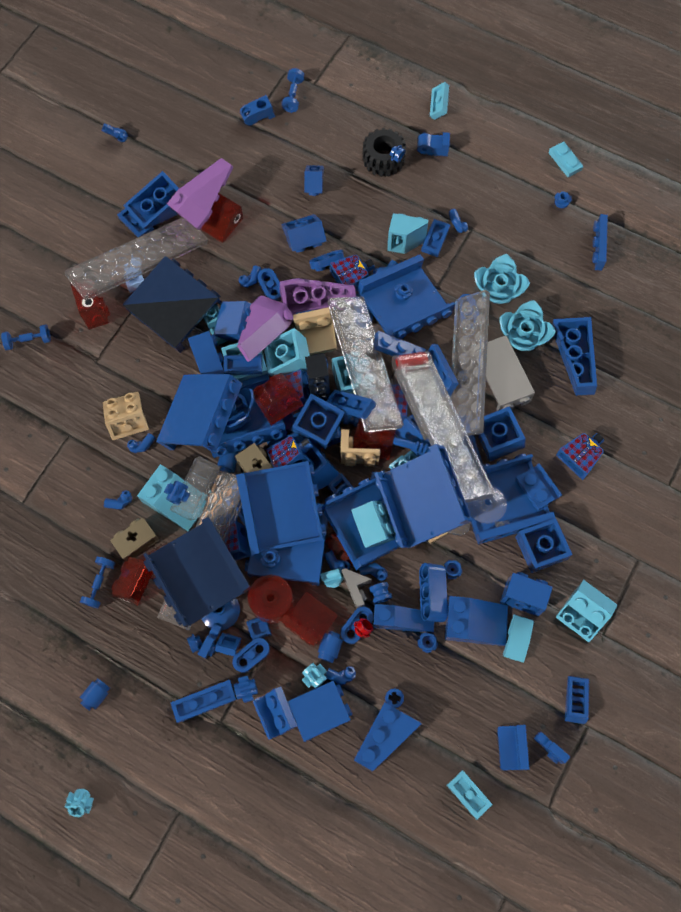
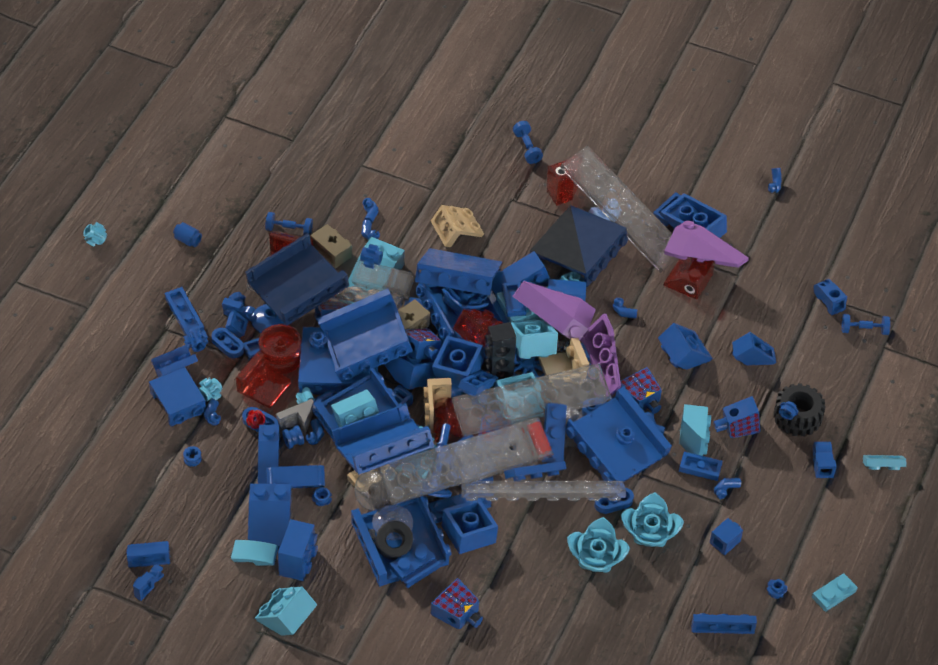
camera: 80 degrees right, 20 degrees down
(89, 496) = (371, 209): none -> blue arm
(141, 446) = (426, 241): blue arm -> none
(271, 286) = (618, 320): blue plate -> none
(319, 263) = (655, 368): blue plate -> none
(330, 646) = (237, 400): blue brick -> none
(385, 735) = (155, 445): blue wedge -> none
(392, 195) = (739, 419): none -> blue torso
(427, 648) = (246, 475): blue plate -> none
(469, 794) = (104, 517): medium azure plate -> none
(506, 375) = (539, 528): light grey panel -> none
(512, 227) = (726, 536): none -> blue brick
(523, 498) = (397, 527): none -> black tyre
(543, 545) = (350, 567): blue brick -> none
(576, 348) = (573, 598): blue wedge -> none
(584, 709) = (194, 612): blue slope -> none

